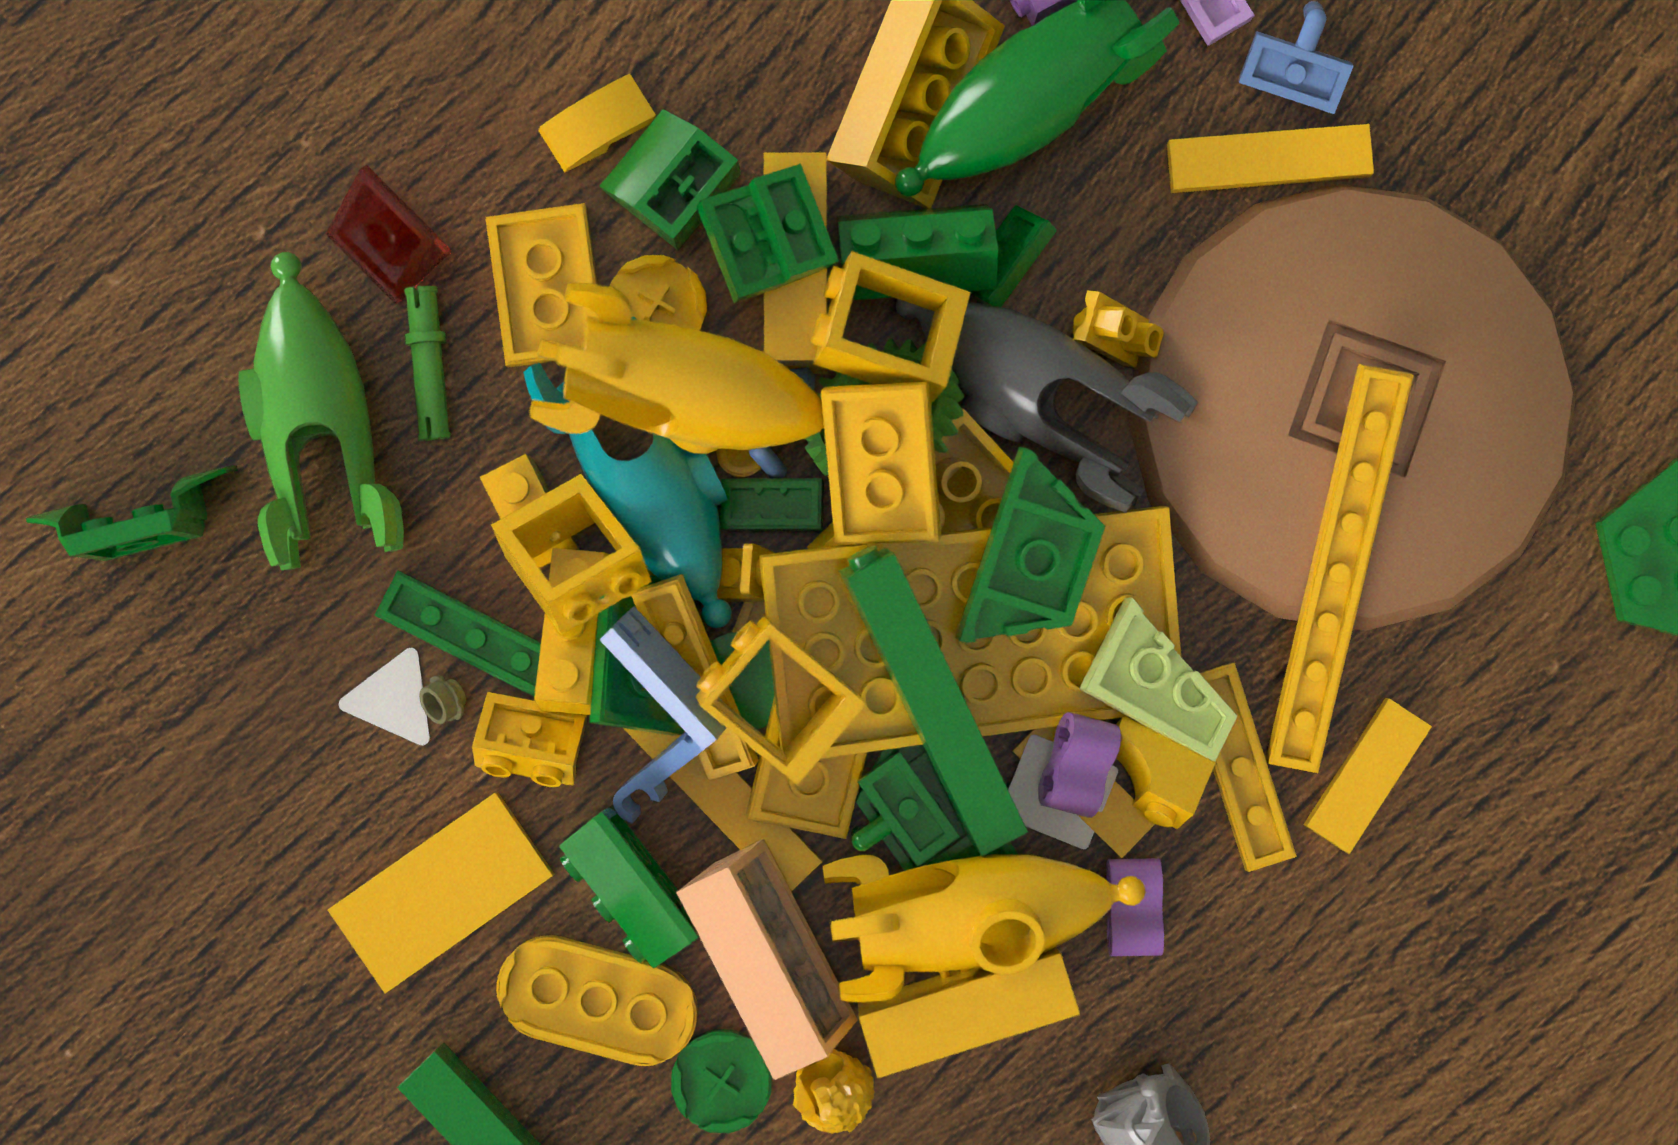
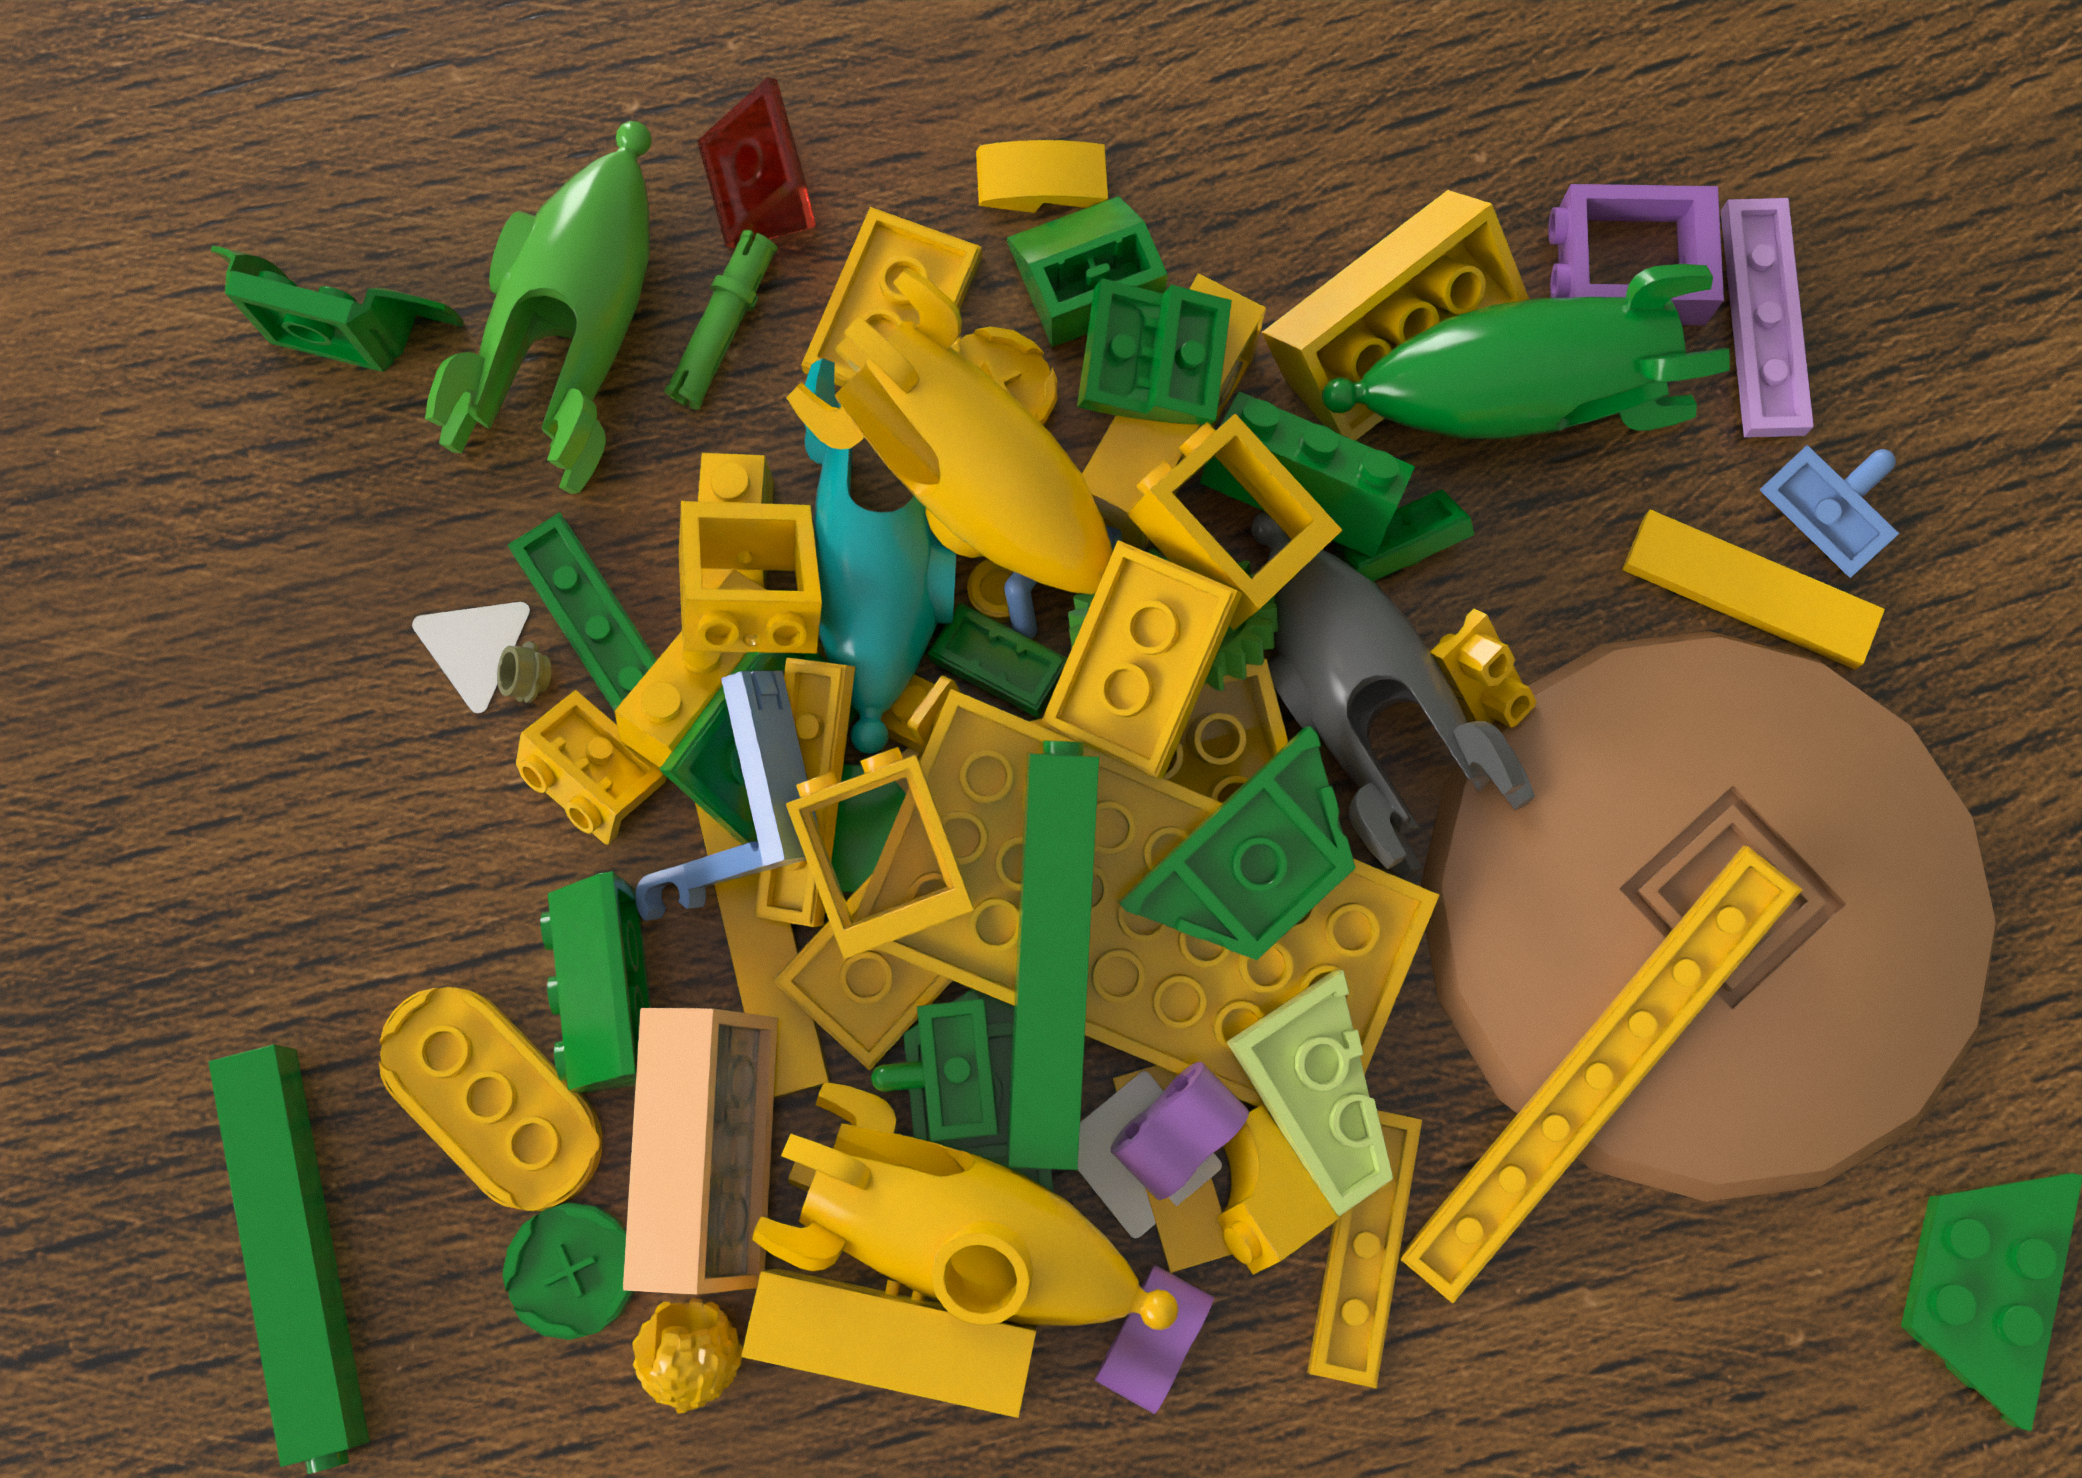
camera: 30 degrees right, 10 degrees down
(441, 892) = (394, 880): yellow tile -> none
(1367, 775) = (1509, 1340): yellow tile -> none

